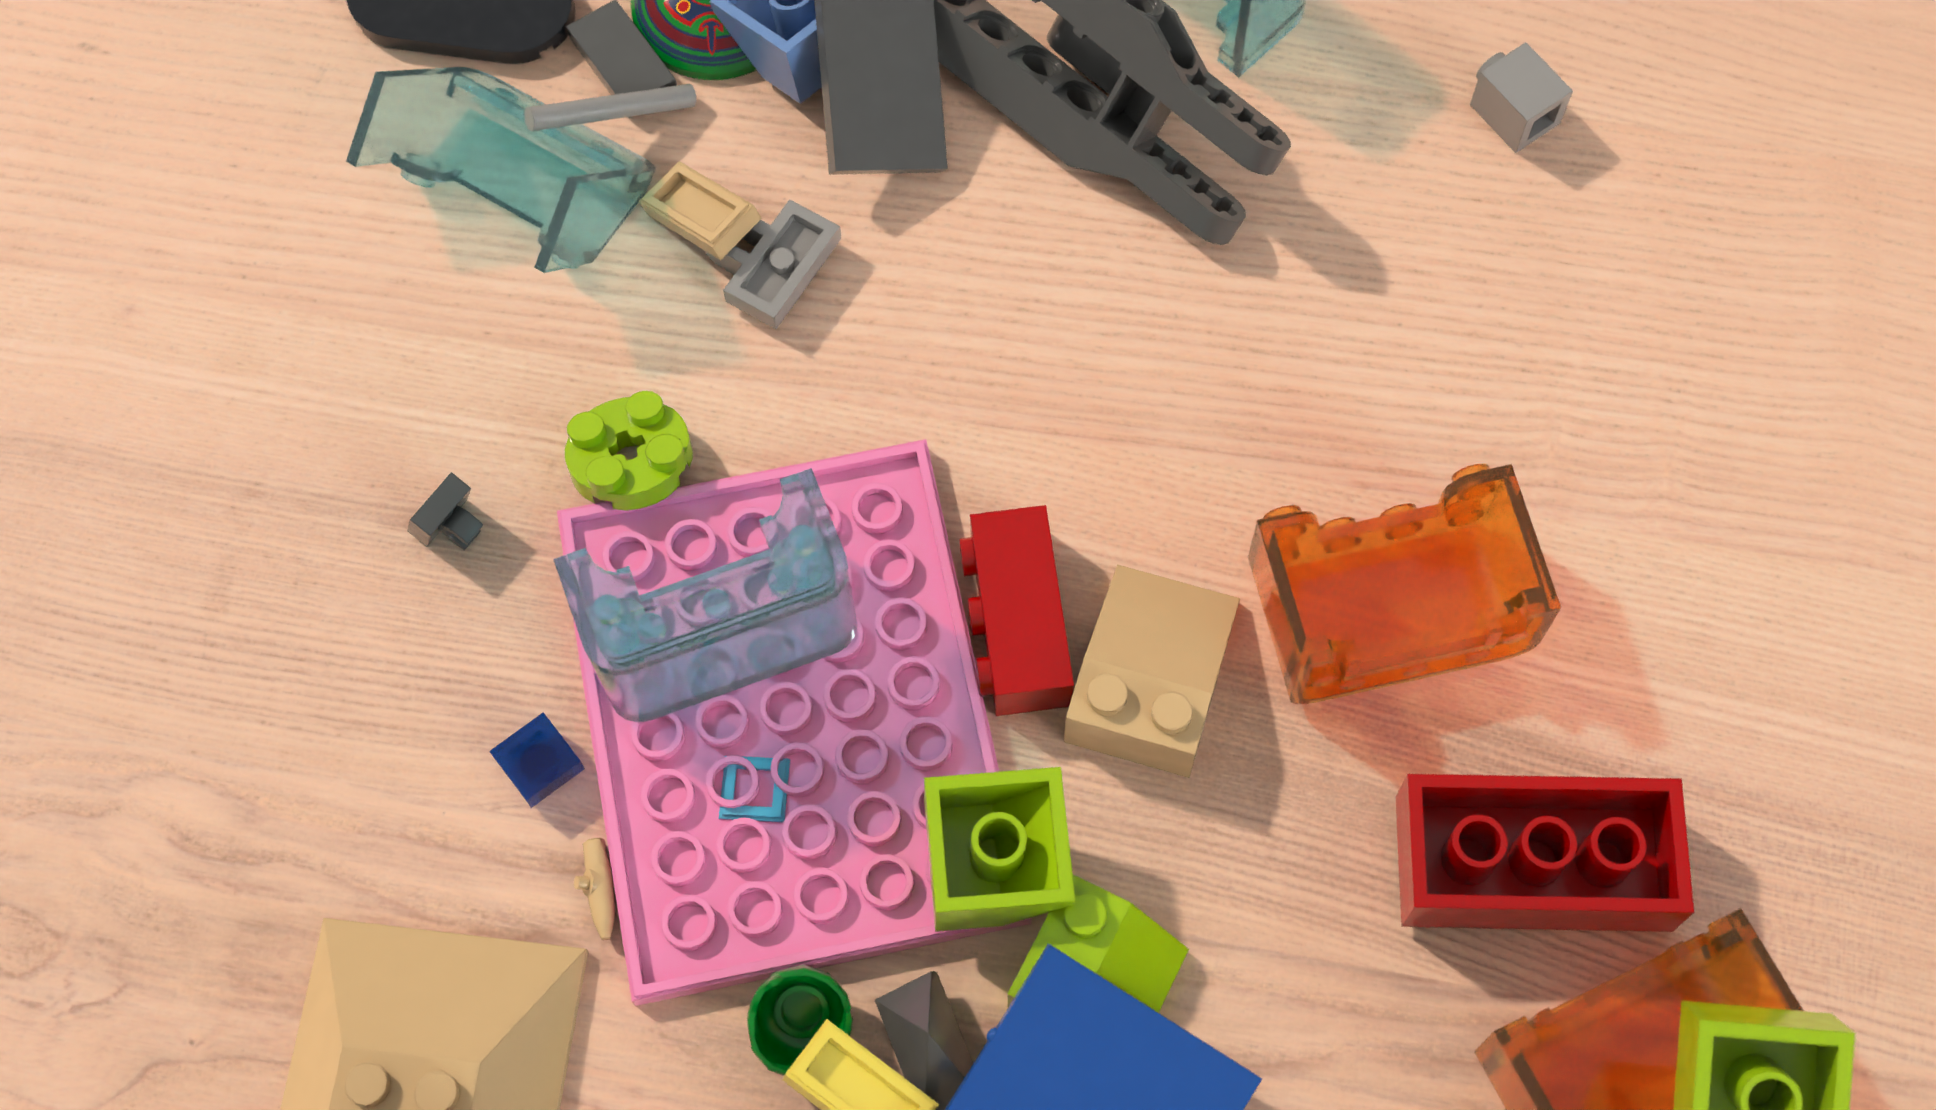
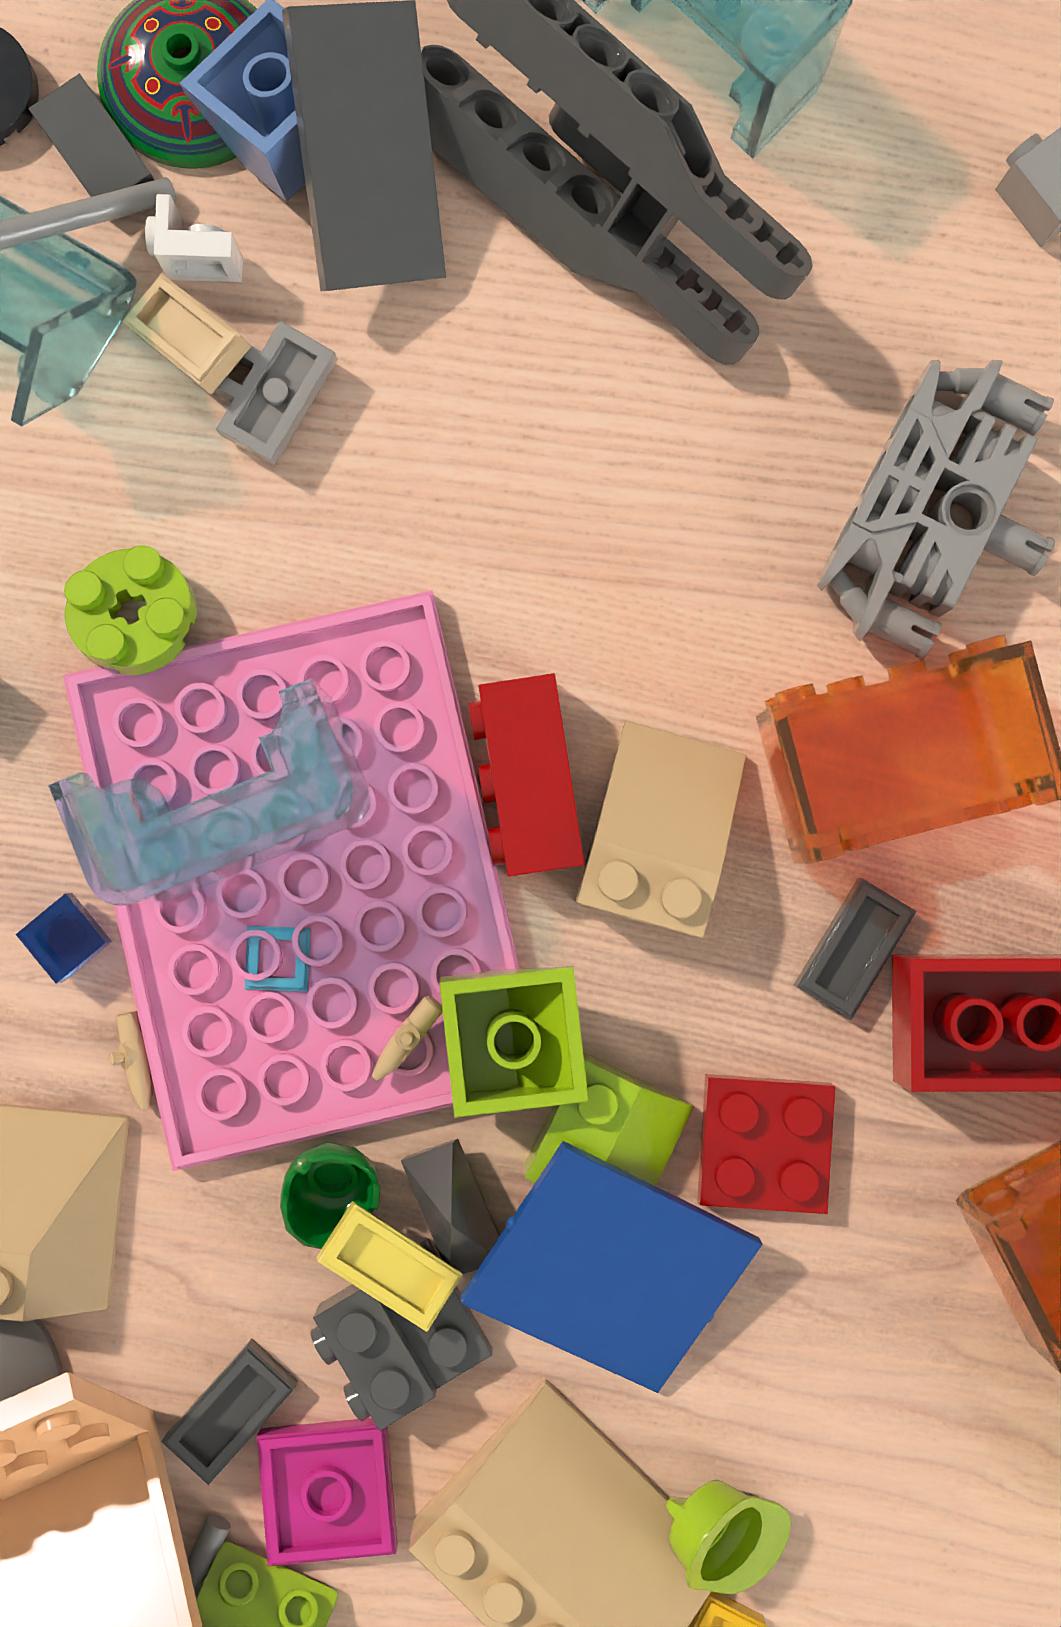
camera: 10 degrees left, 20 degrees up
(713, 143) = (191, 254): none -> white bracket
(887, 862) = (407, 1037): none -> tan helmet
(1268, 989) = (766, 1144): none -> red plate
(1356, 790) = (855, 948): none -> dark grey tile
(1429, 408) = (901, 485): none -> light grey piece

